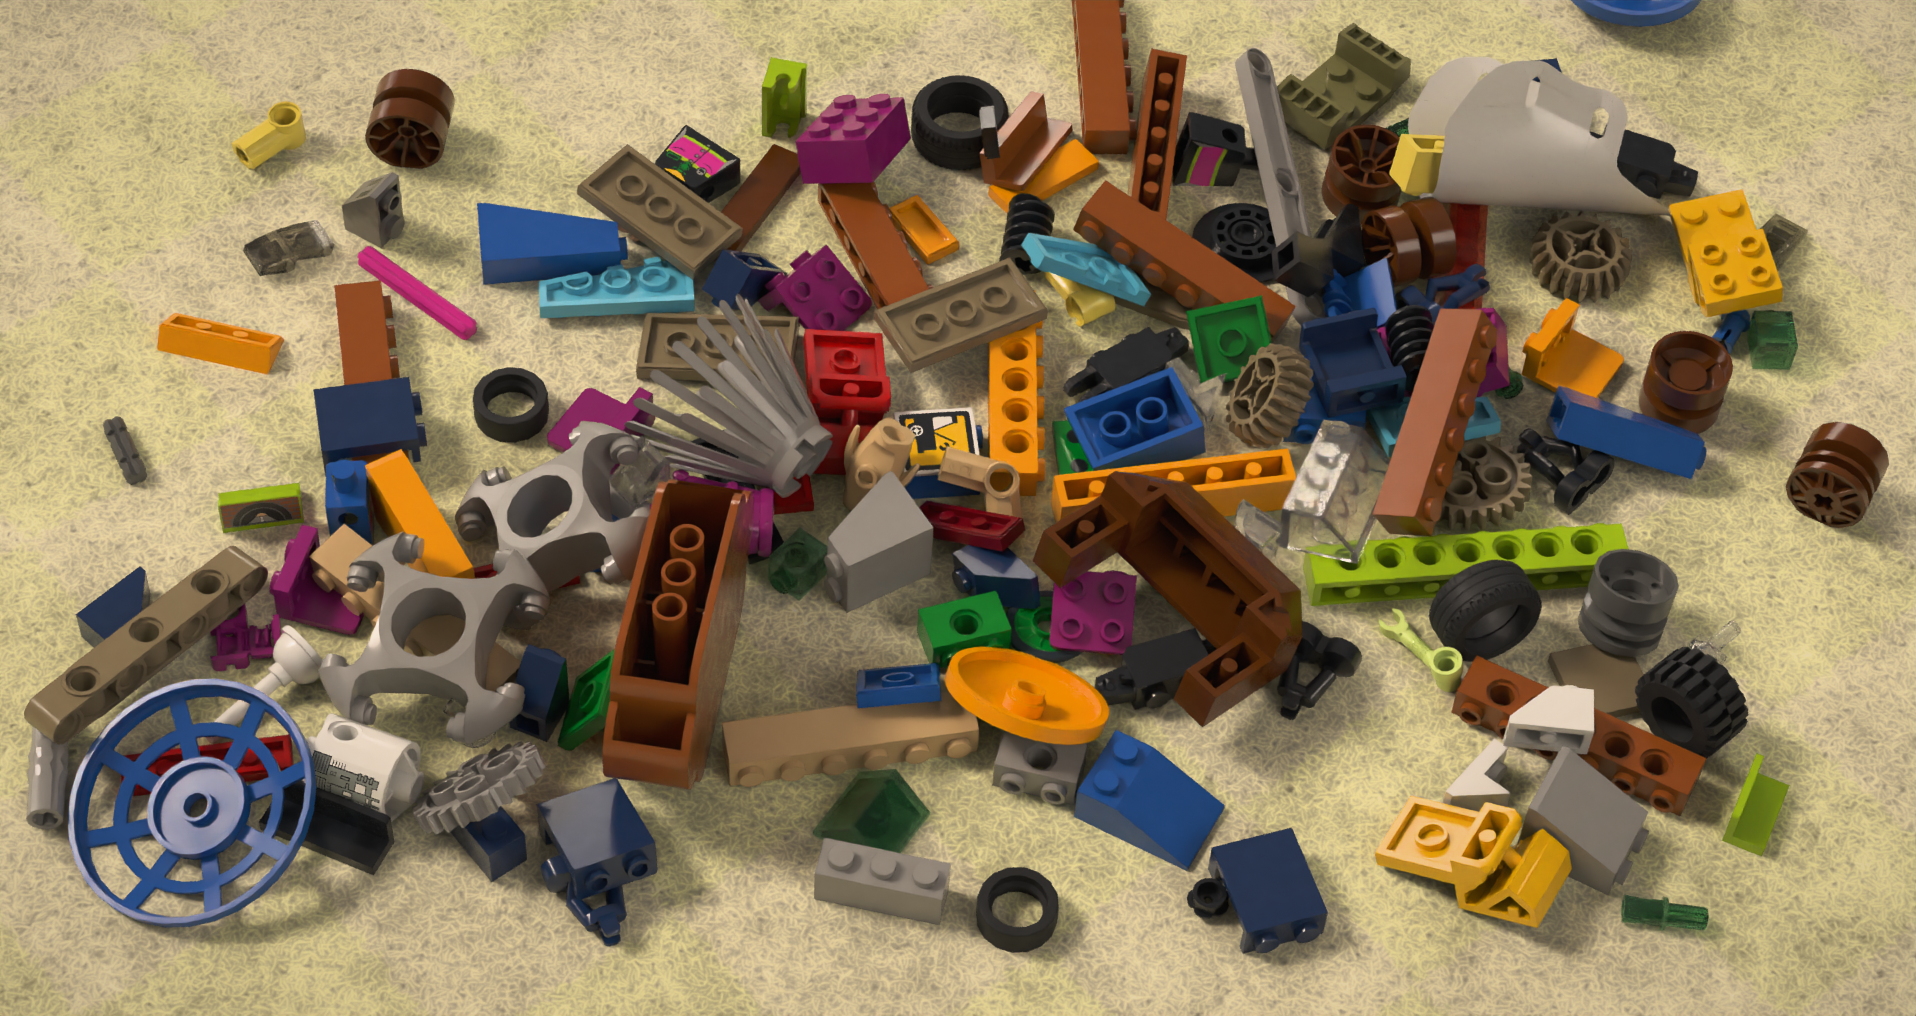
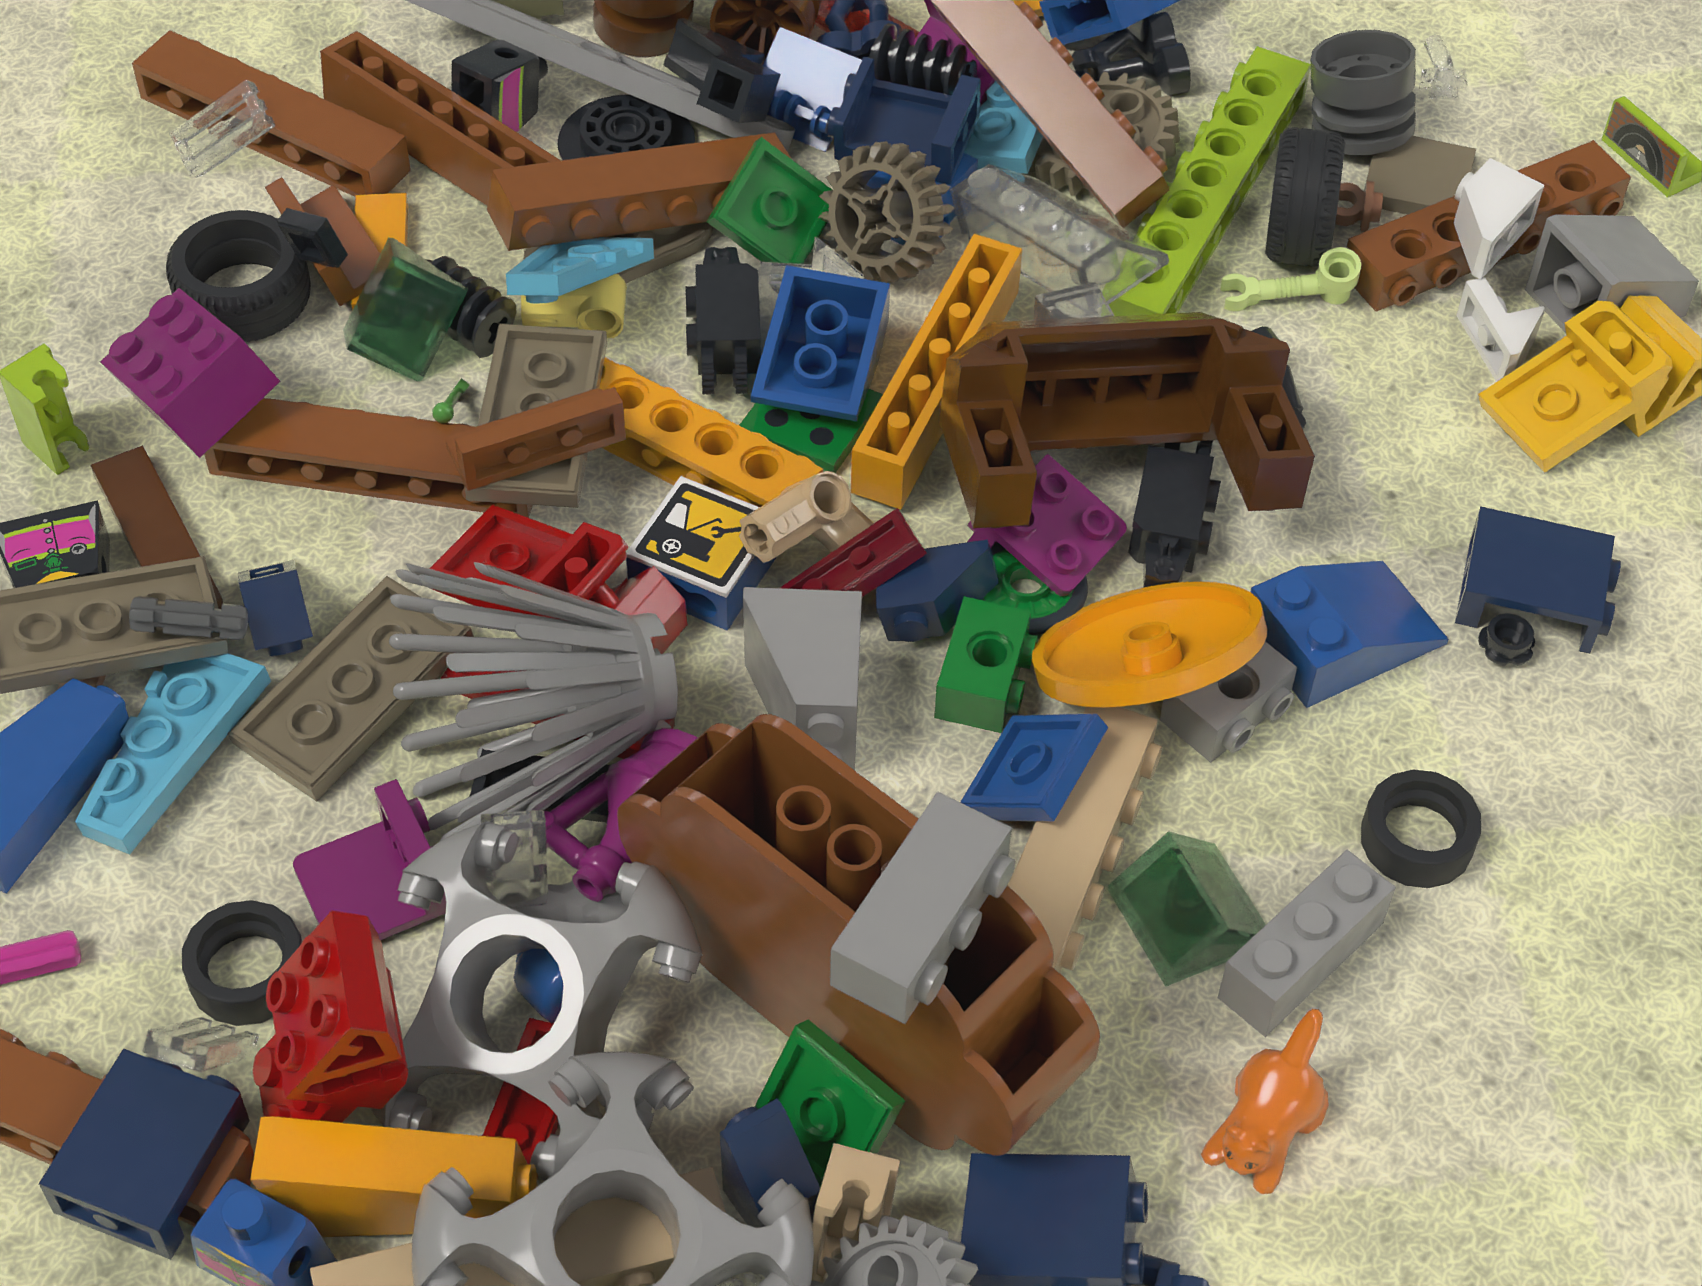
camera: 55 degrees left, 0 degrees up
(442, 410) = (210, 1045): none -> clear tile
(468, 444) = (333, 1027): none -> red piece
(542, 725) = (853, 1192): none -> tan hinge
(649, 611) = (922, 908): none -> light grey brick
(687, 244) = (188, 618): none -> dark grey axle
(758, 914) = (1275, 1100): none -> orange animal
(818, 292) = (355, 535): magenta bracket -> none
(880, 452) = (699, 607): tan animal -> none
(923, 230) = (363, 391): light orange tile -> none
(926, 271) = (443, 411): none -> bright green hinge
(930, 319) = (537, 437): none -> dark orange panel
(989, 209) = (403, 312): none -> clear green slope
(1057, 50) = (226, 136): none -> clear tile
(1535, 659) = (1366, 205): none -> nougat plate
(1692, 702) = (1527, 106): black tyre -> none

